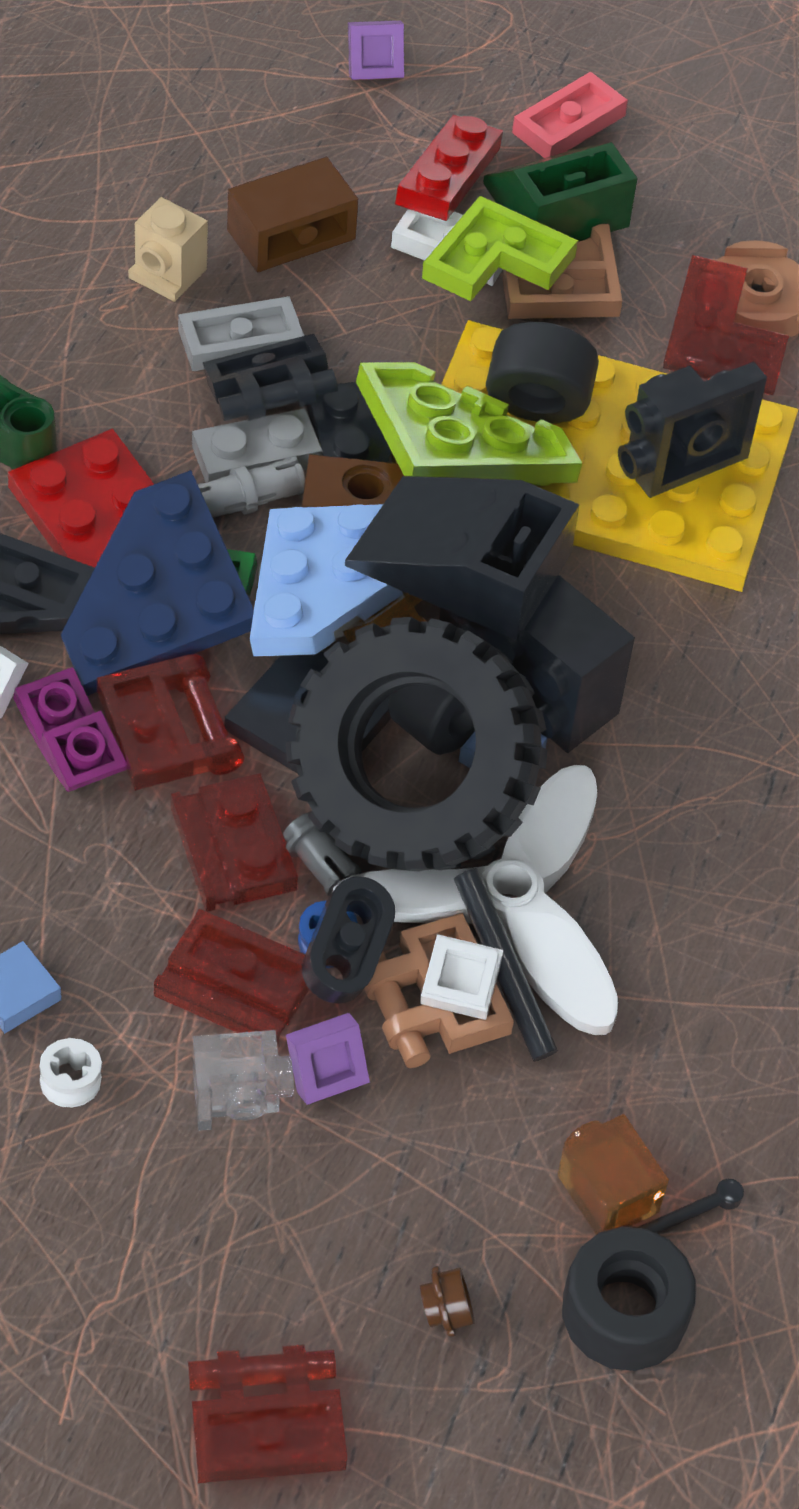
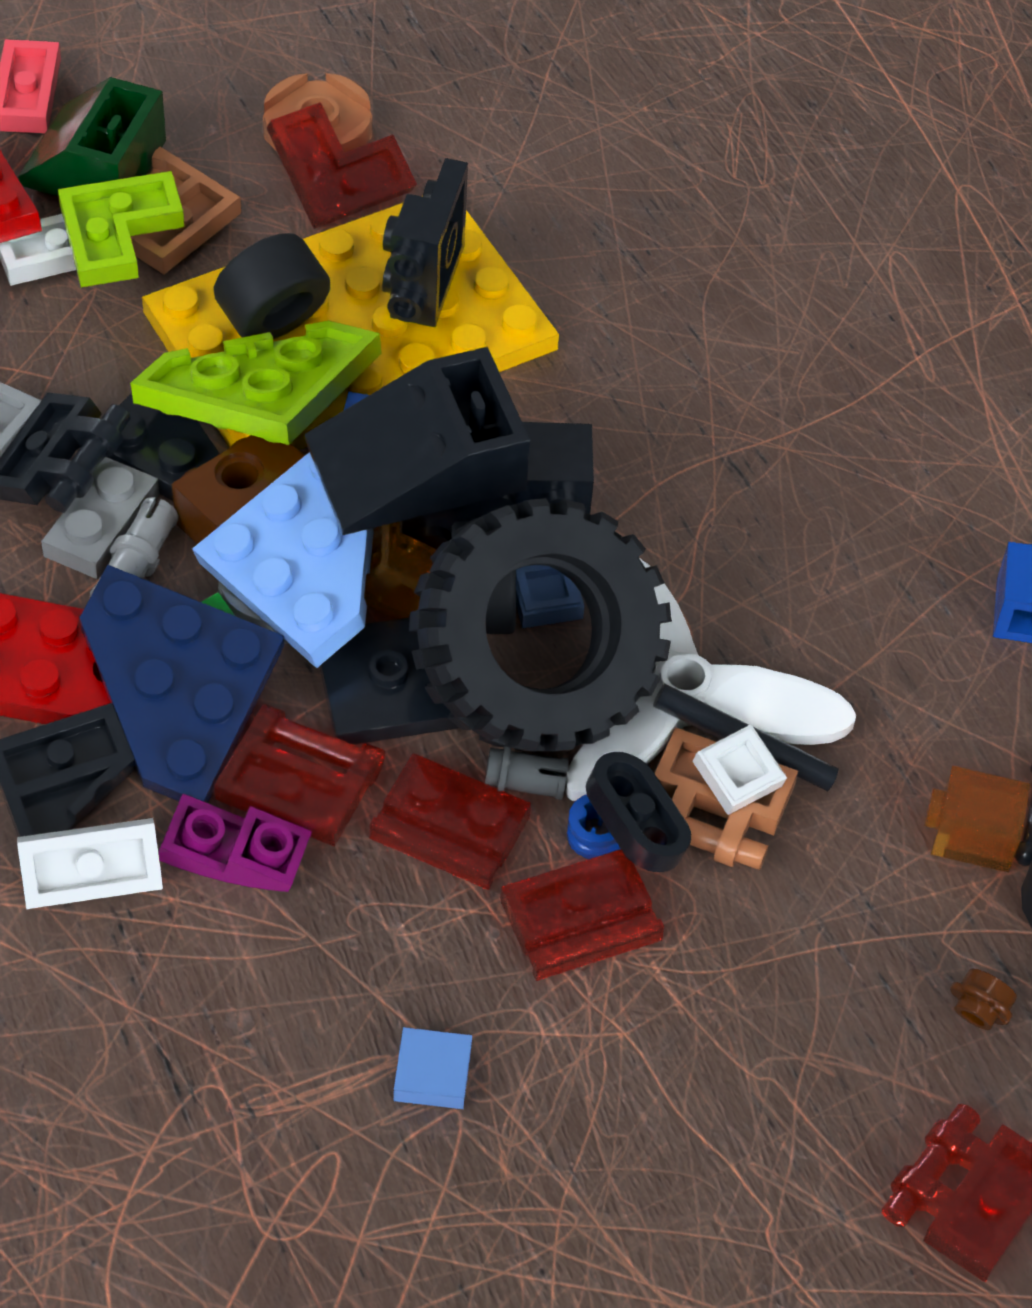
camera: 45 degrees left, 0 degrees up
(60, 1087) = (564, 1102): white bush -> none
(239, 1076) = (672, 982): clear brick -> none
(327, 1058) = (710, 911): medium lavender tile -> none

